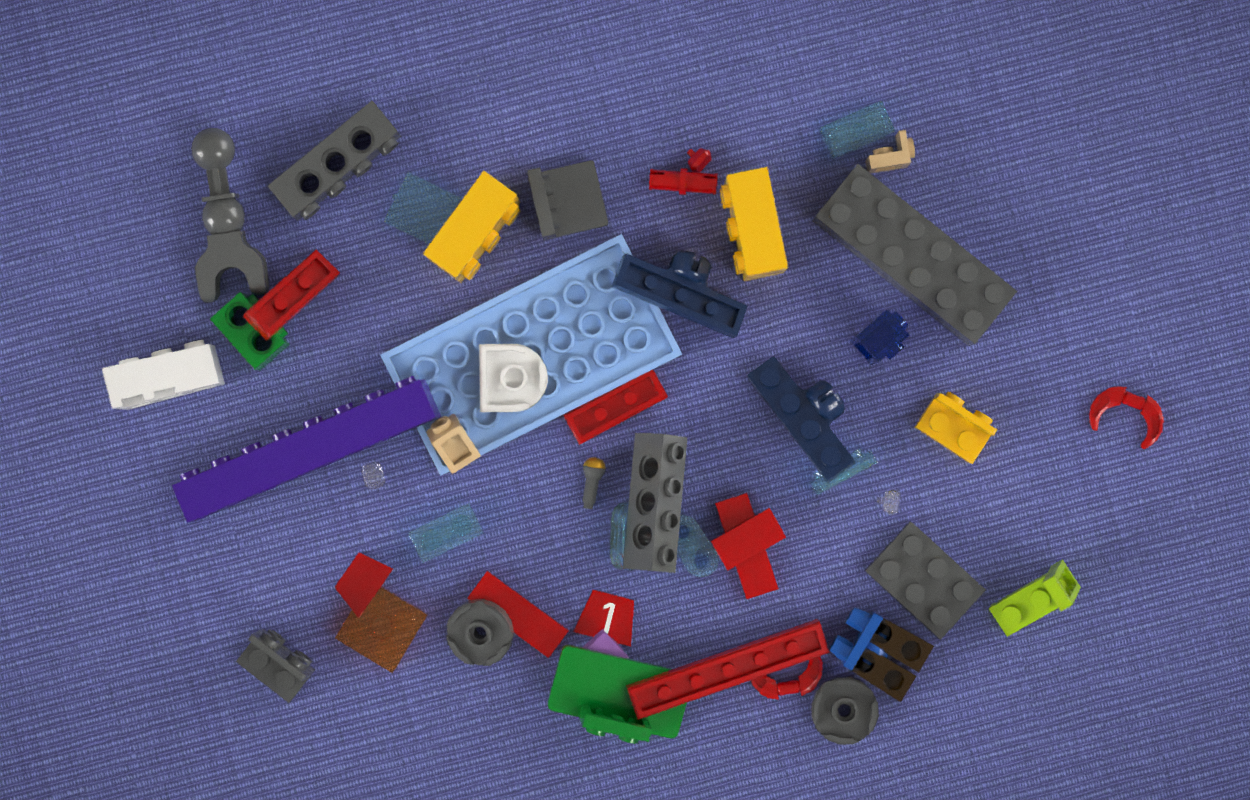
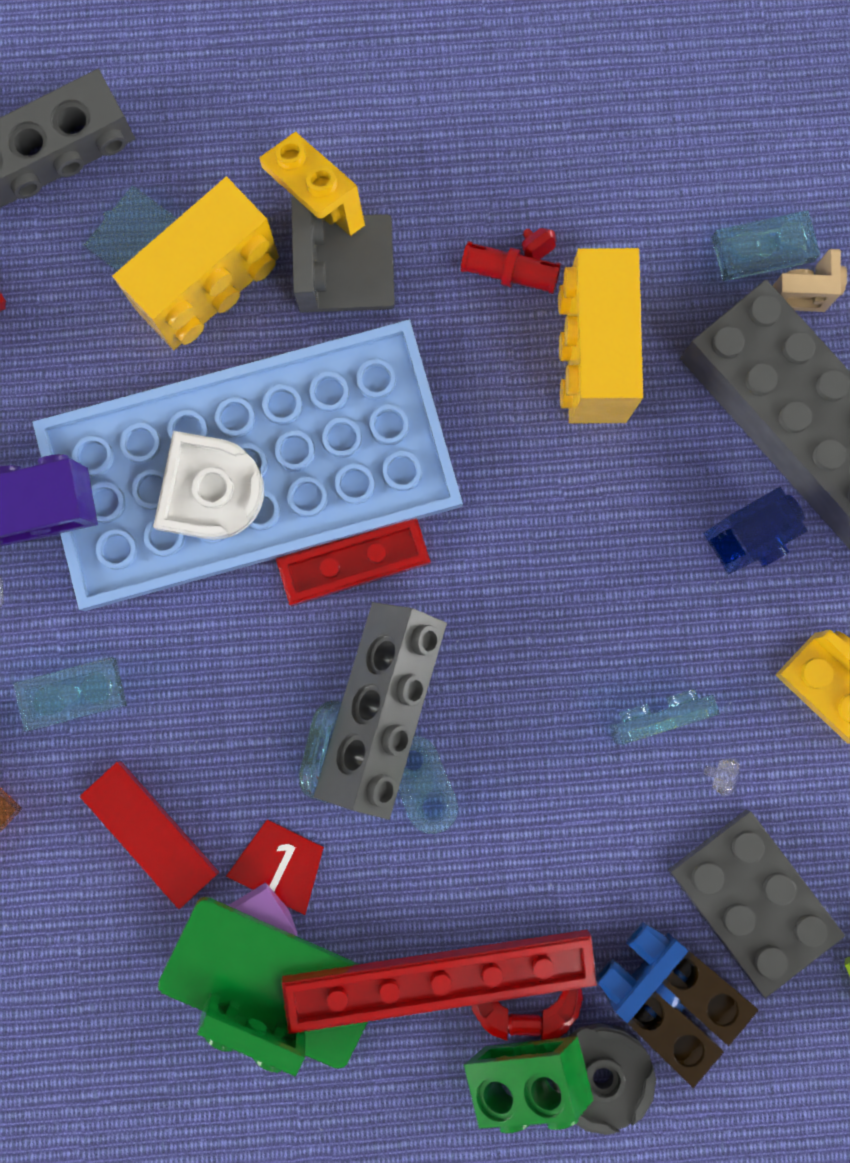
camera: 10 degrees right, 5 degrees down
(452, 443) = (102, 564): tan bracket -> none
(468, 643) = (69, 865): dark grey plate -> none
(537, 154) = (315, 182): none -> yellow bracket
(594, 470) = (302, 646): dark grey piece -> none
(681, 291) = (478, 413): dark blue plate -> none
(748, 539) = (507, 790): red tile -> none
(756, 572) = (503, 800): red tile -> none
(793, 715) = (524, 1071): none -> green brick
(805, 416) = (625, 627): dark blue plate -> none

